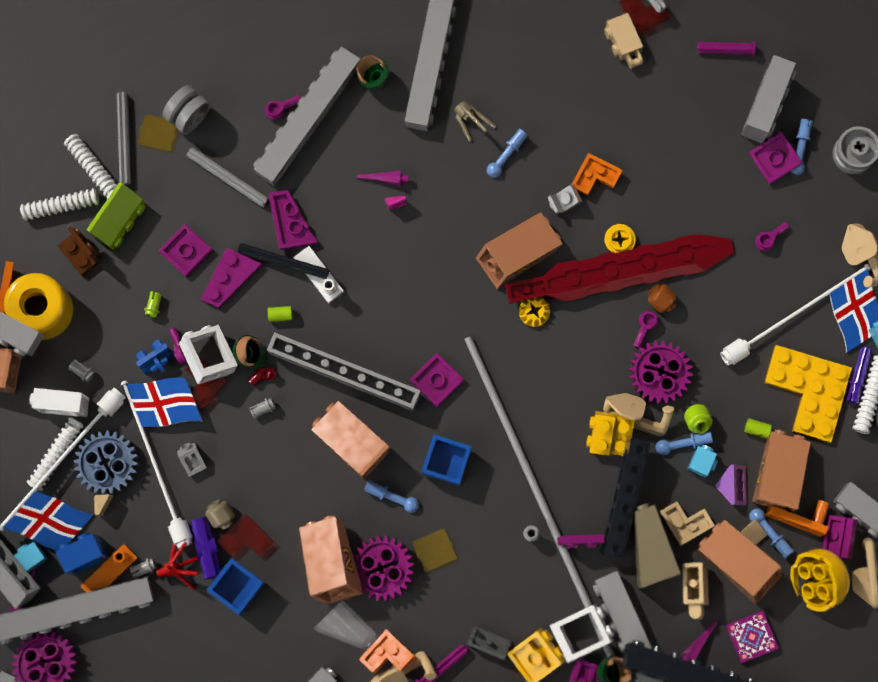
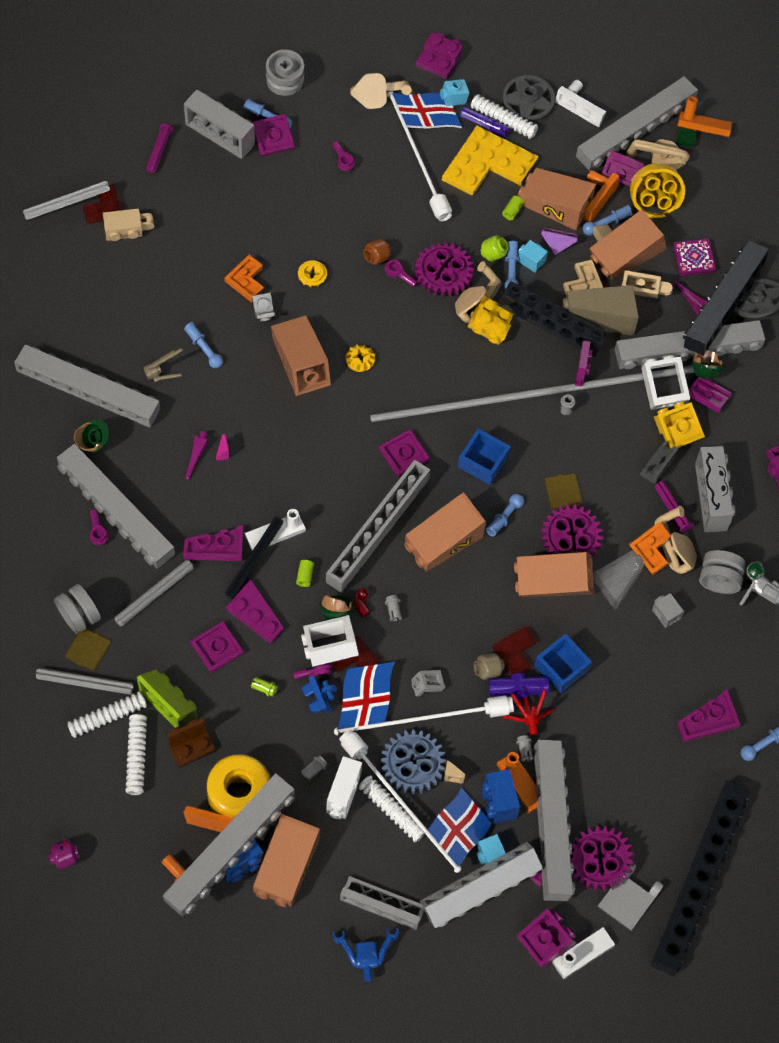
camera: 85 degrees left, 15 degrees down
(623, 269) = (341, 280): dark red plate -> none

